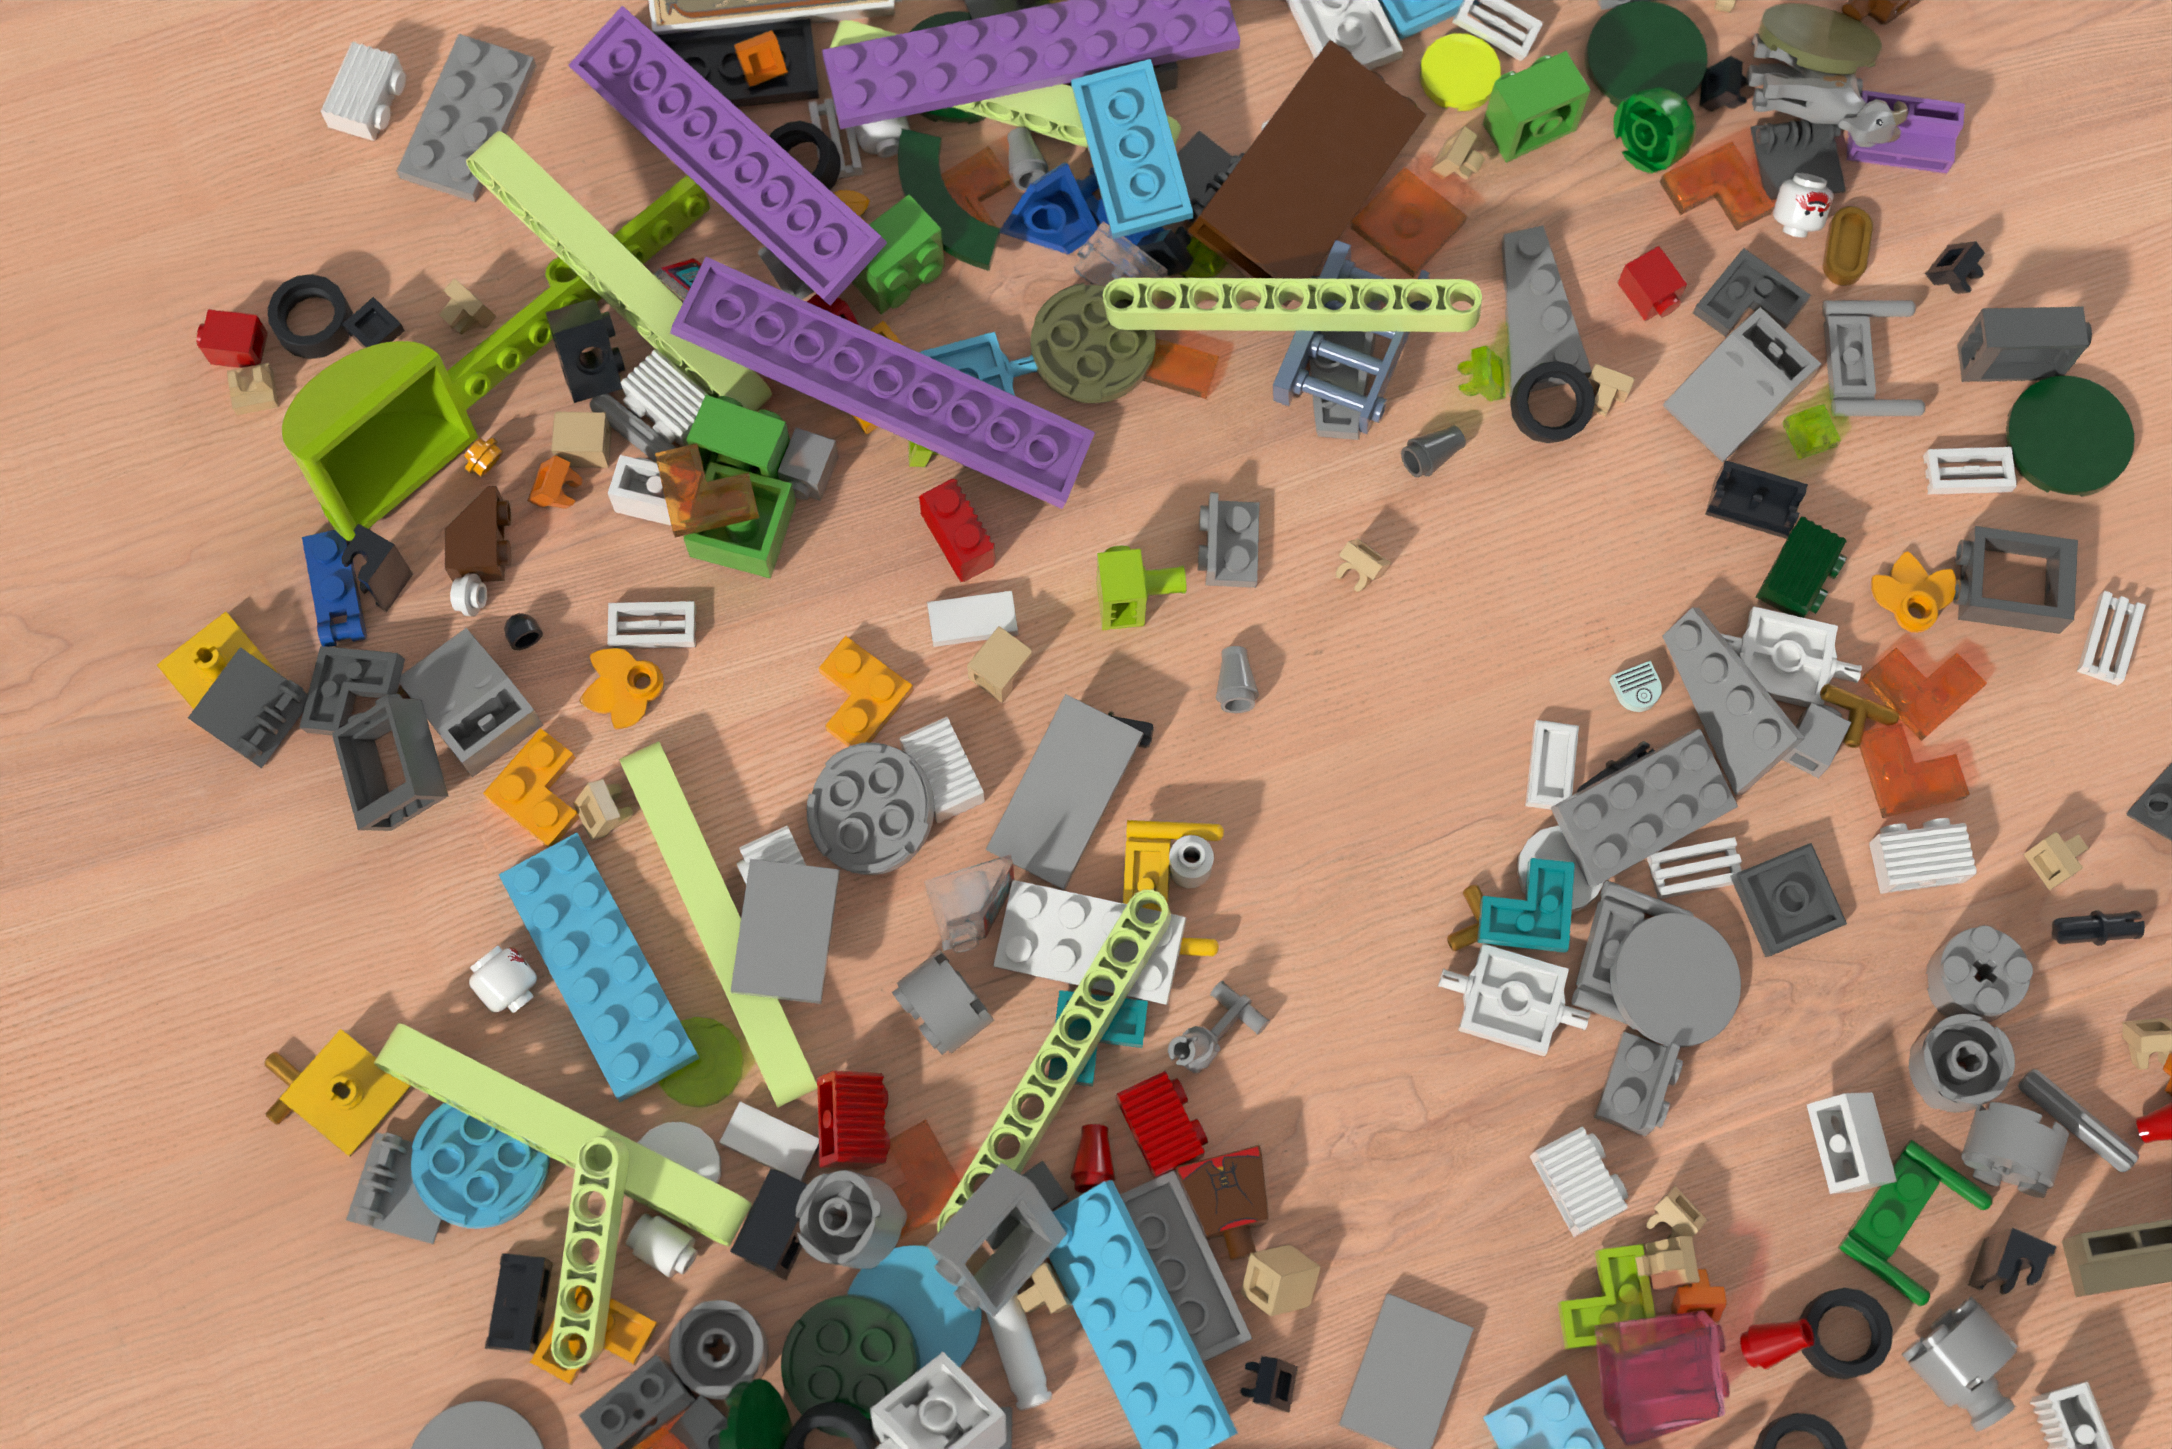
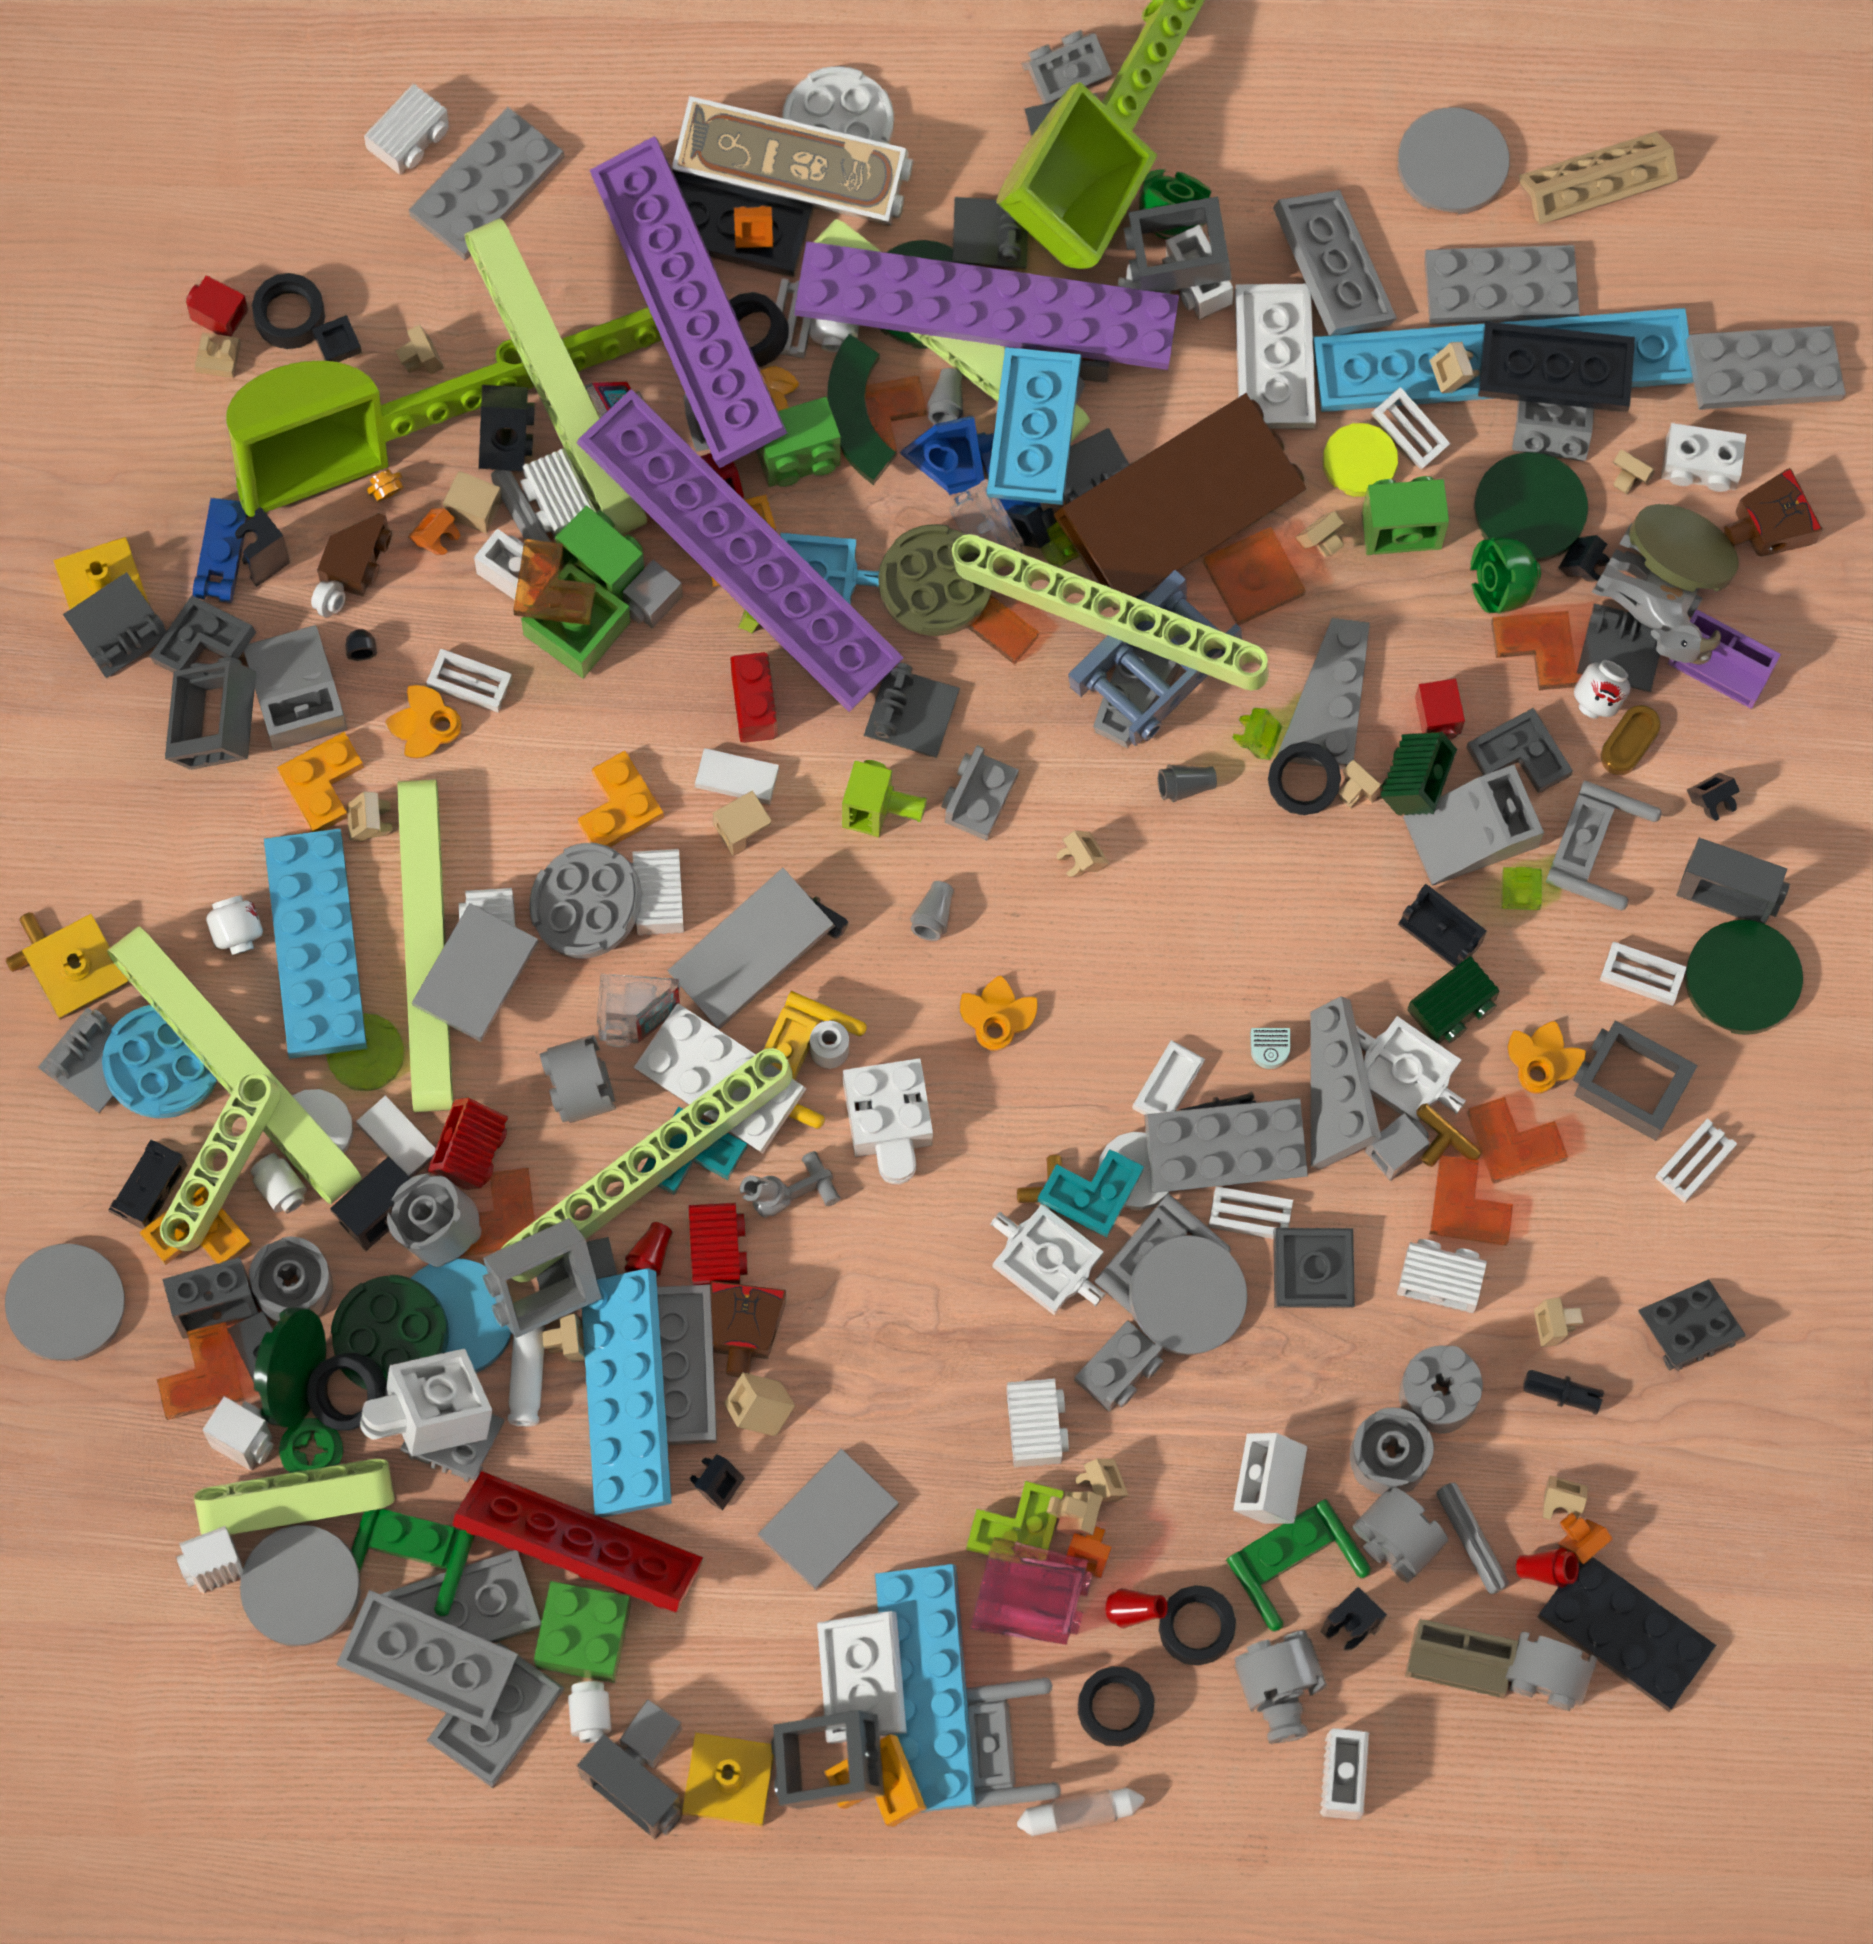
camera: 20 degrees right, 0 degrees up
(1124, 484) = (911, 711): none -> dark grey hinge
(1287, 910) = (888, 1115): none -> white brick
(1346, 756) = (997, 1009): none -> light orange plate
(1663, 353) = (1418, 773): none -> dark green brick

